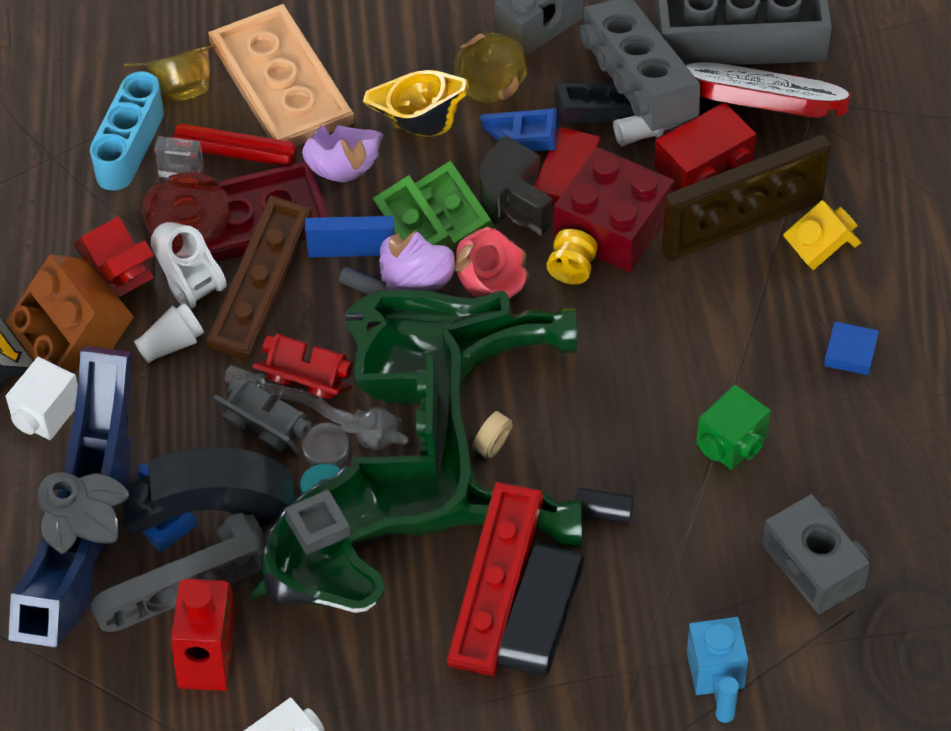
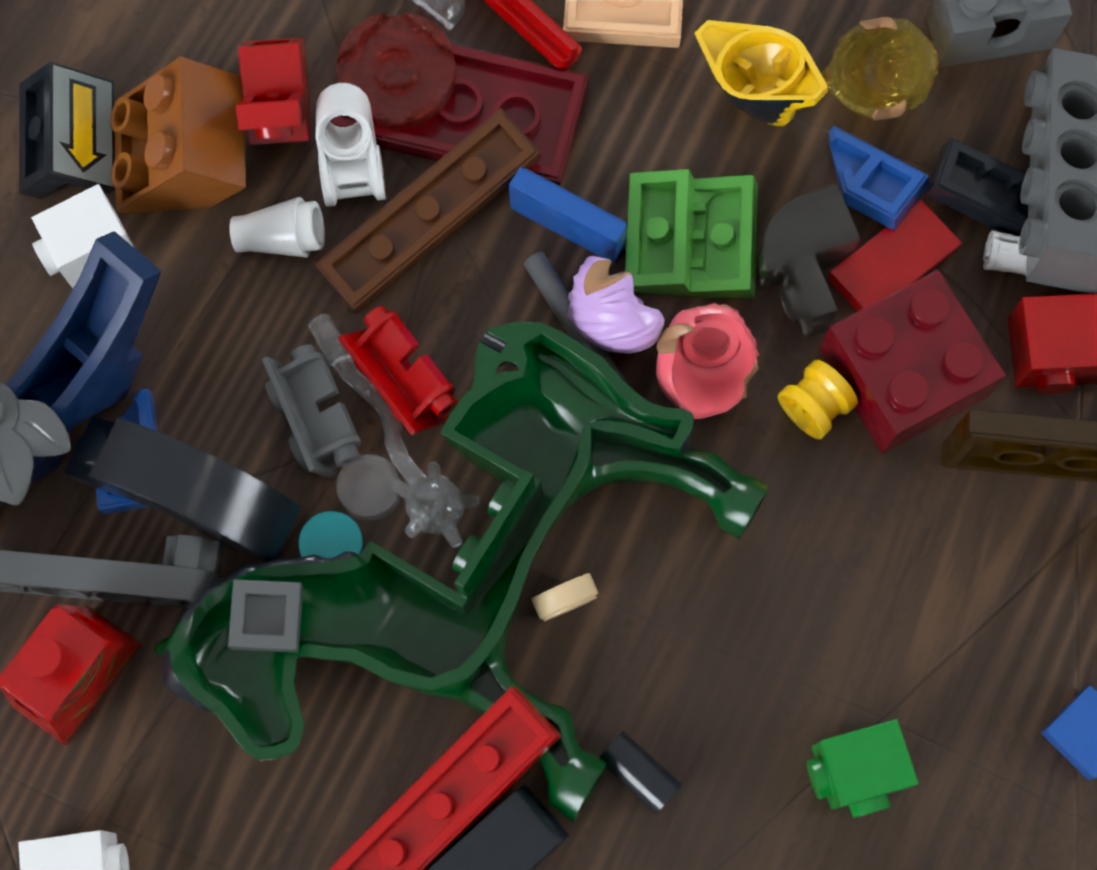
camera: 30 degrees right, 20 degrees up
(342, 154) = (627, 90): lavender hair -> none

